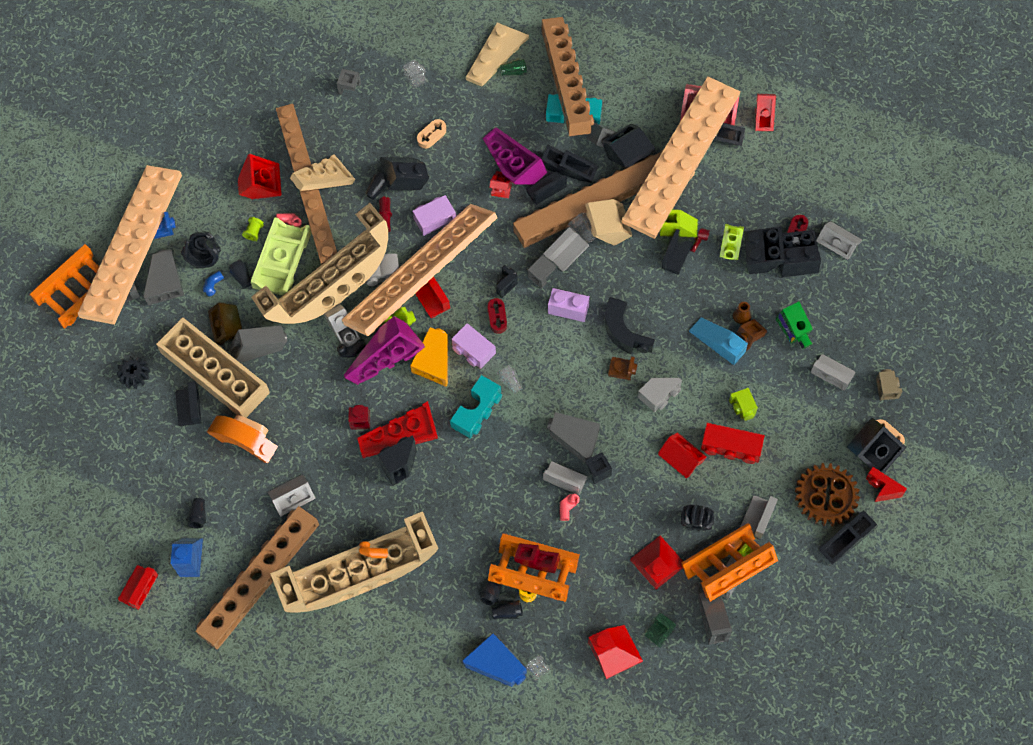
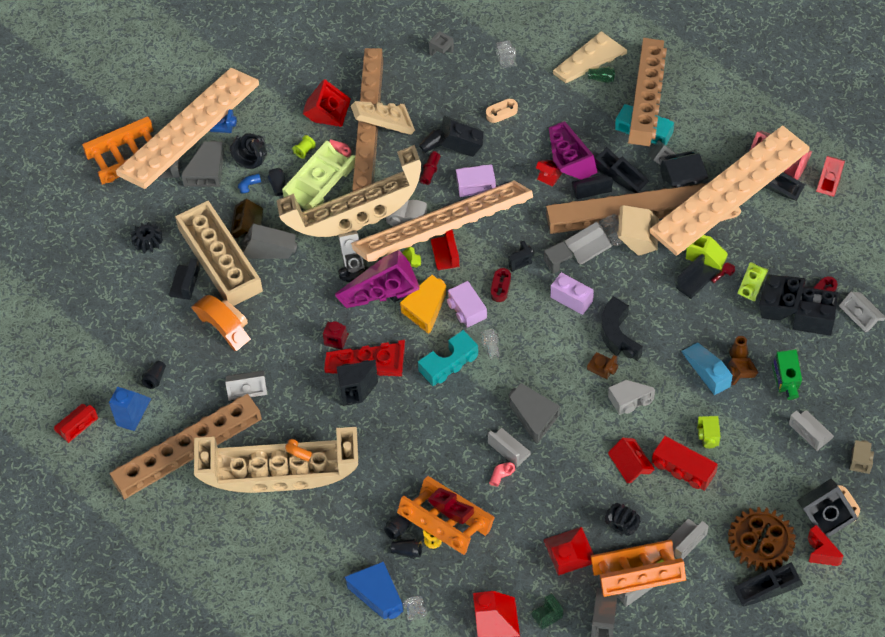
camera: 20 degrees right, 10 degrees down
(599, 467) = (544, 446): black panel -> none

